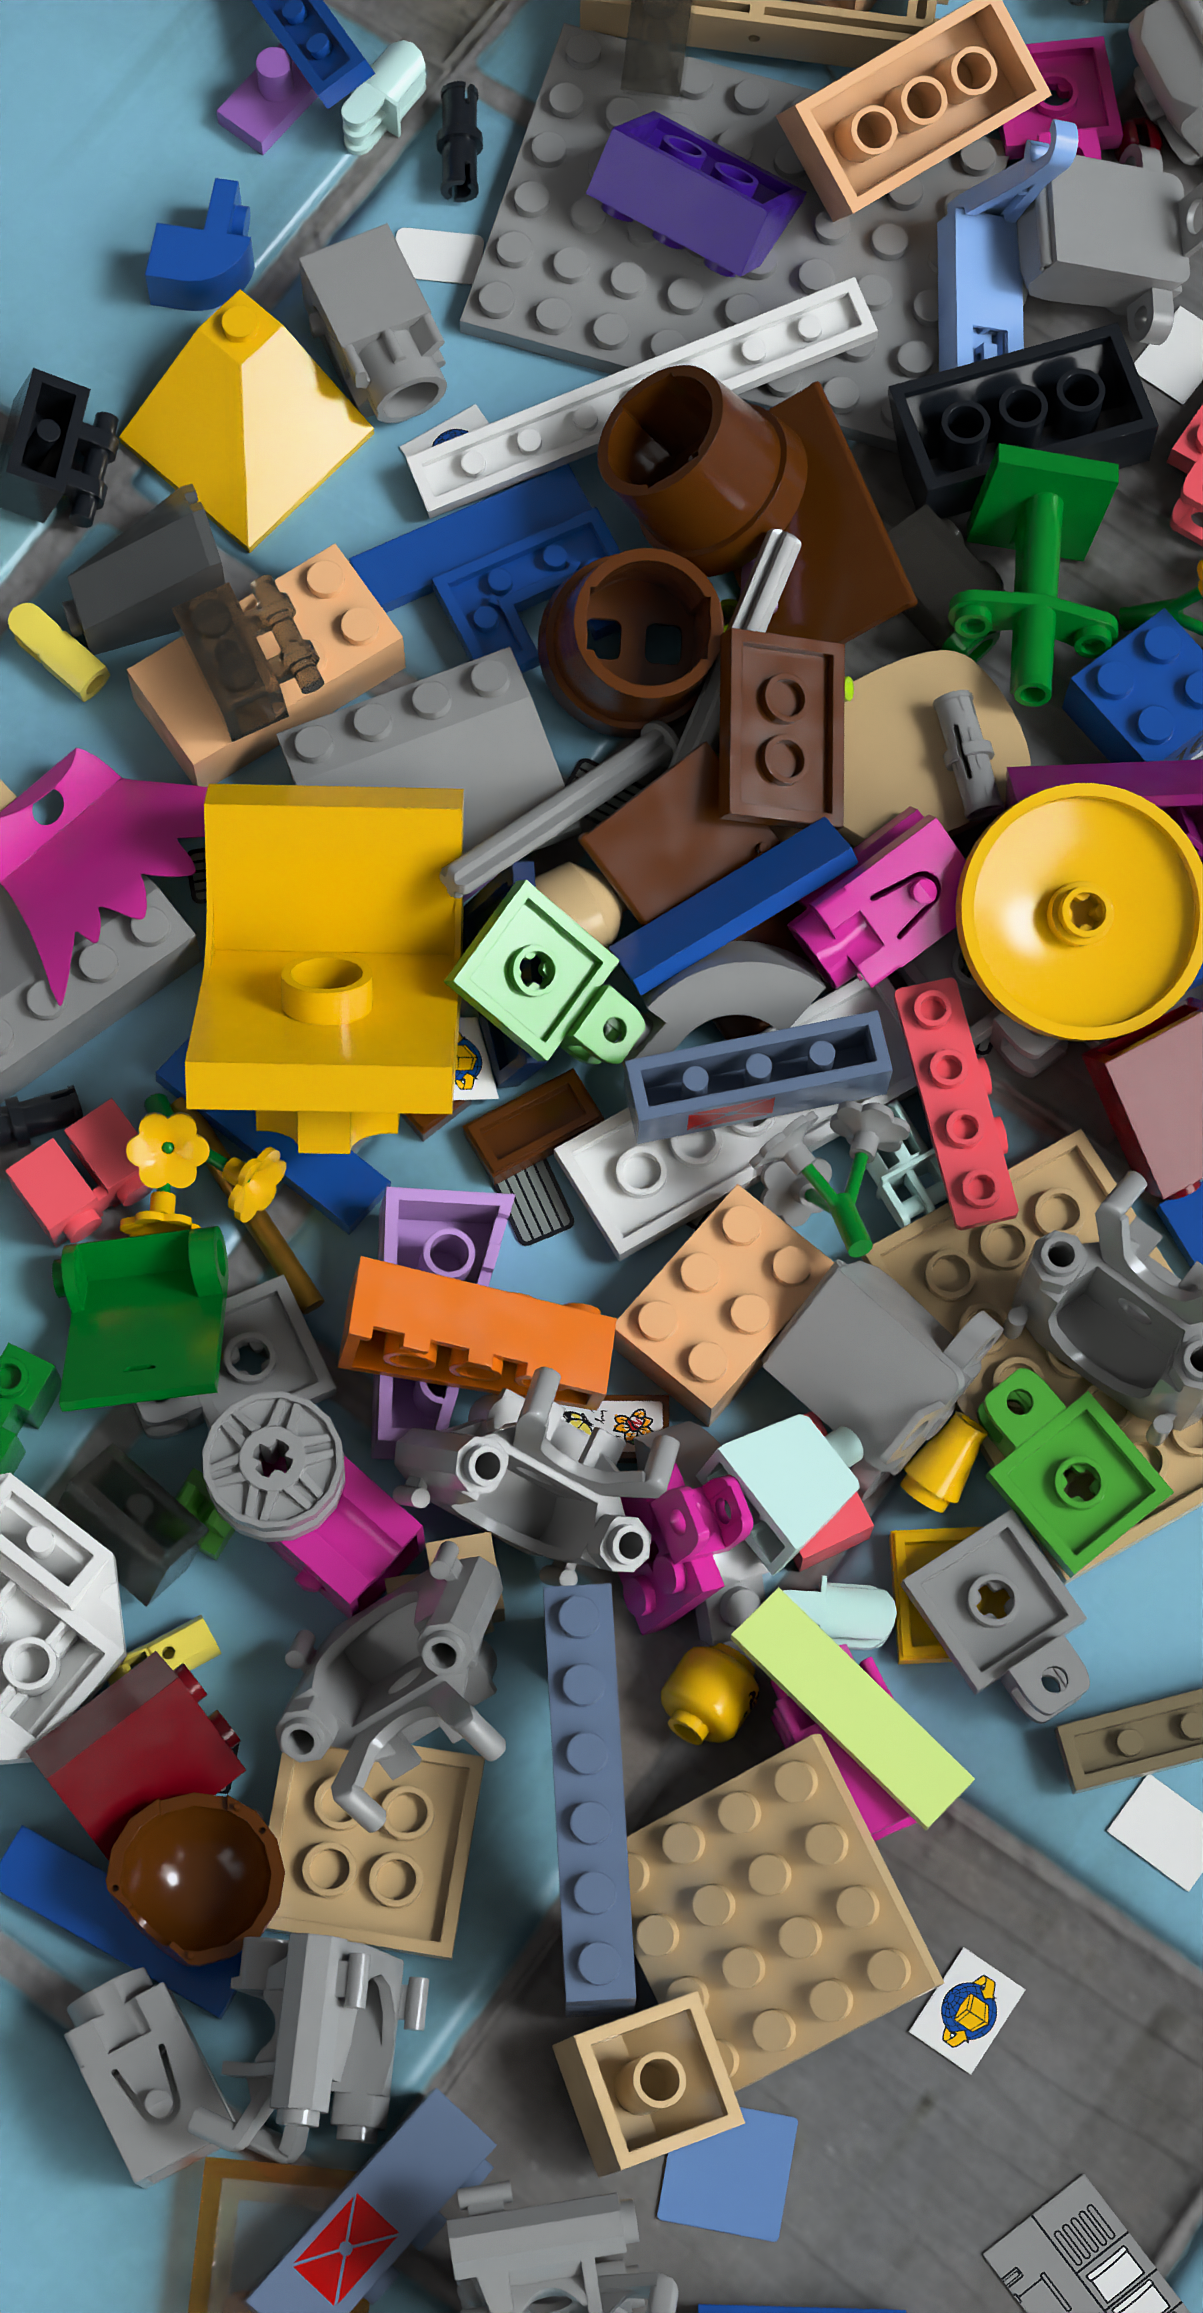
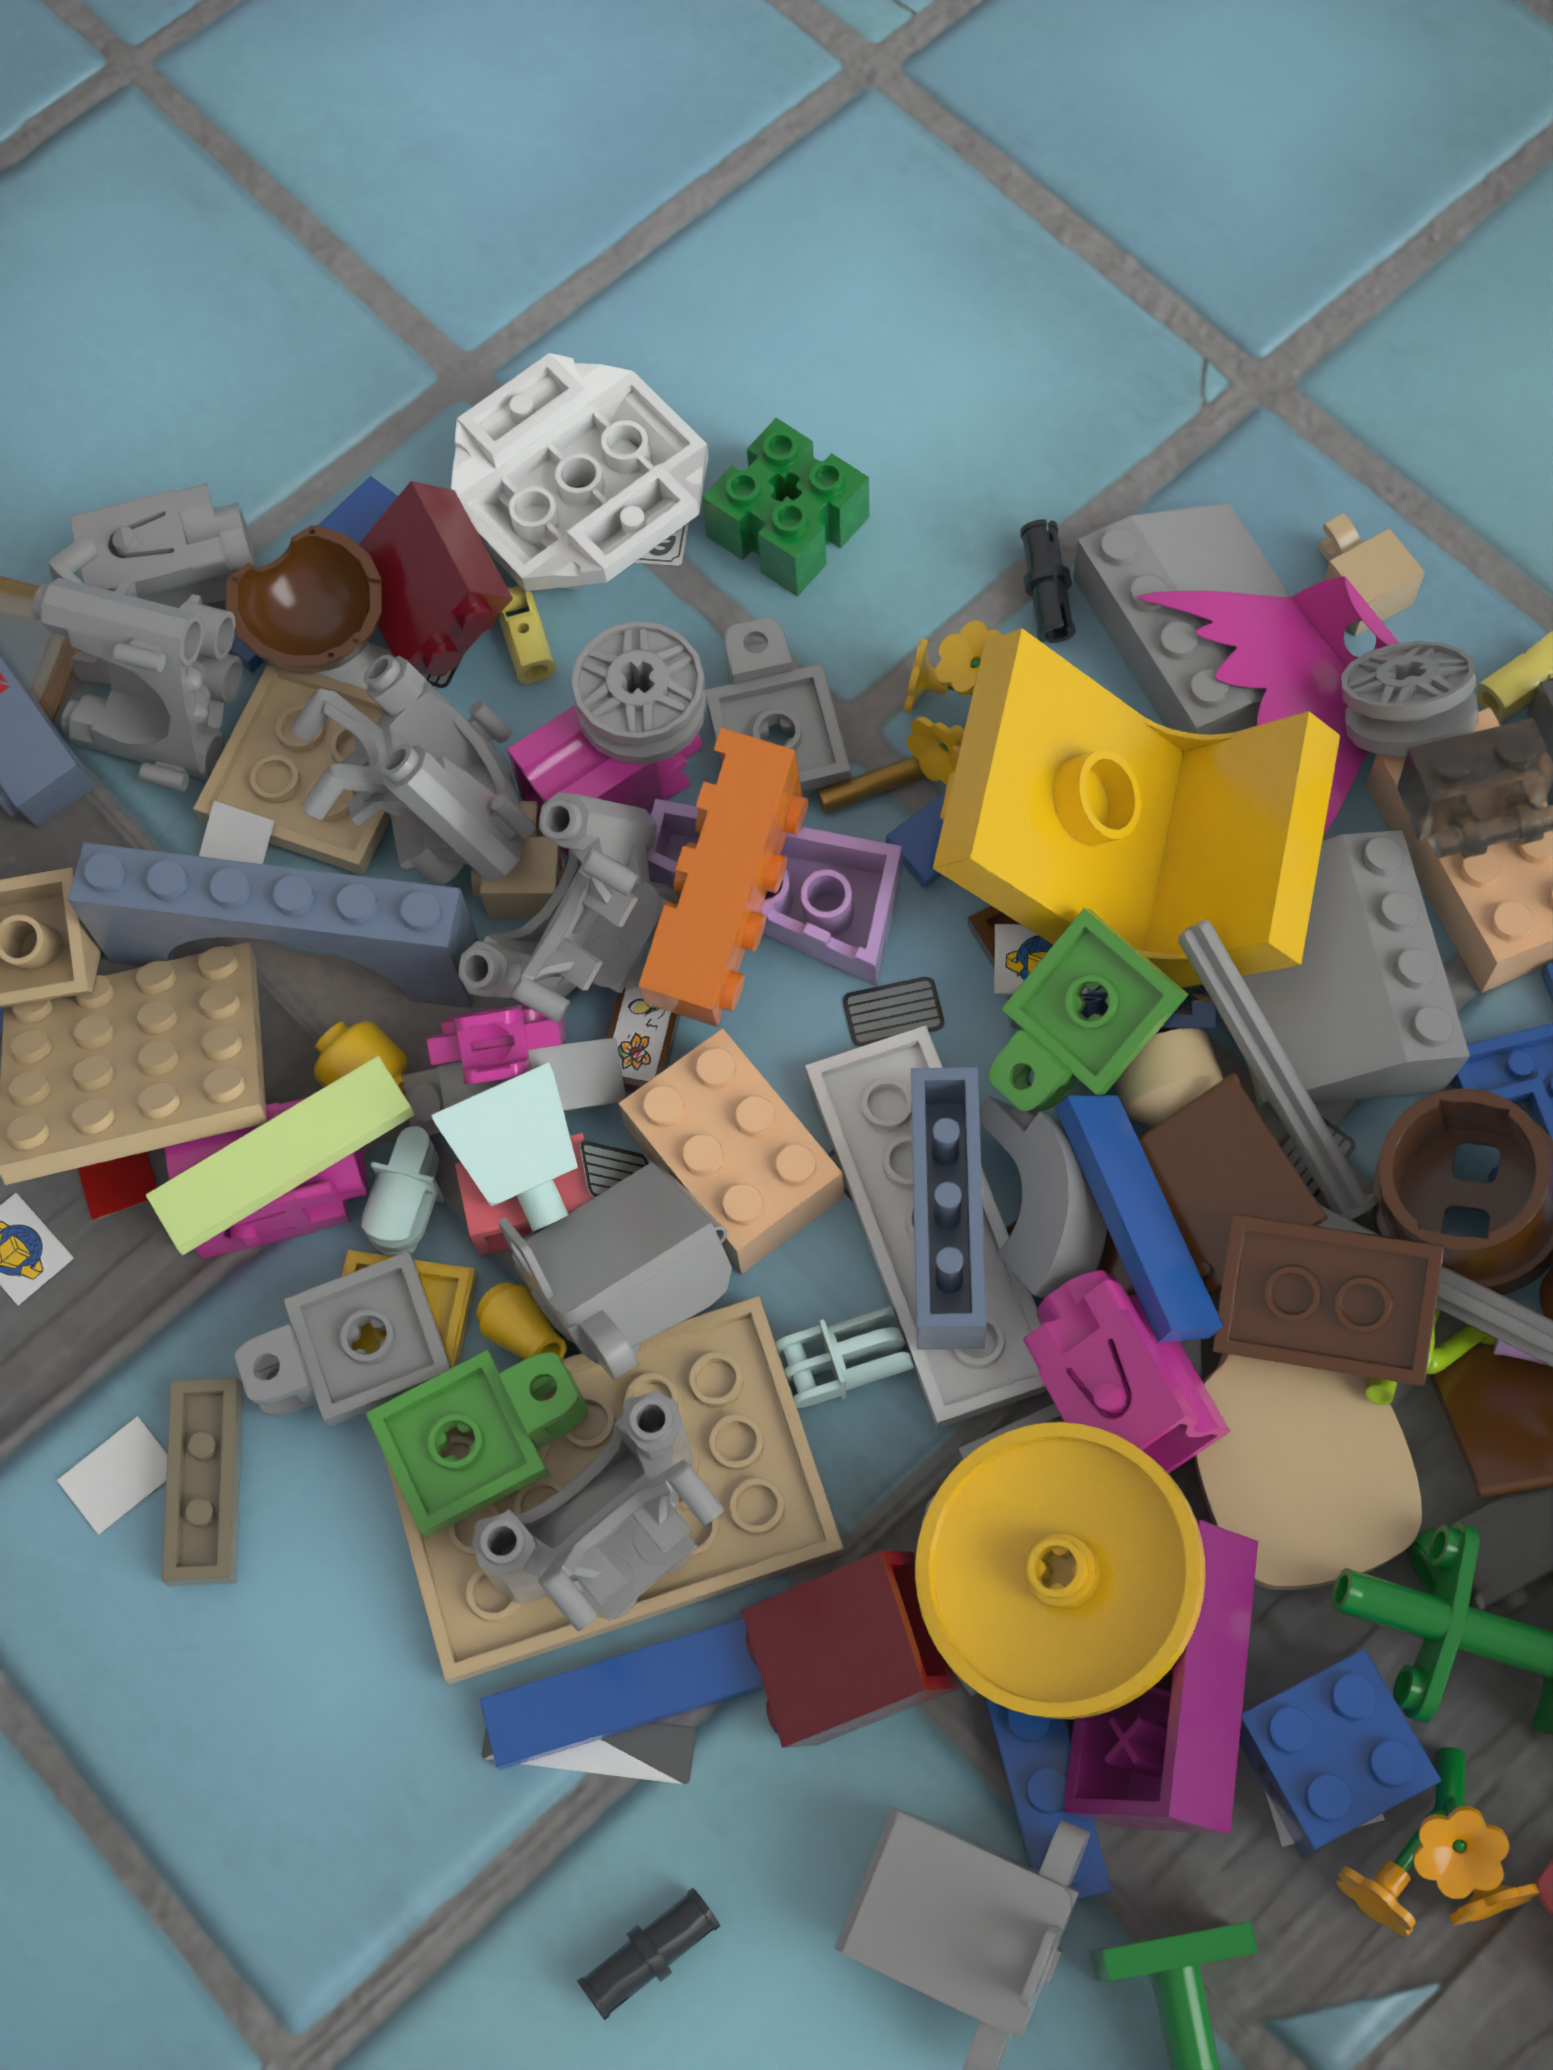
camera: 110 degrees right, 5 degrees down
(58, 1192) = (972, 592): coral piece -> none
(134, 738) = (1409, 696): none -> light grey wheel
(135, 1521) = (653, 595): clear smoke brick -> none
(143, 1317) = (824, 644): green door -> none
(492, 1904) = (236, 835): none -> white sticker
(532, 1126) = (957, 1014): reddish brown tile -> none
(768, 1406) = (608, 1165): none -> light grey sticker
(799, 1182) = (840, 1249): light grey plant -> none
(957, 1104) = (886, 1415): coral bracket -> none
(968, 755) = (1283, 1507): light grey pin -> none

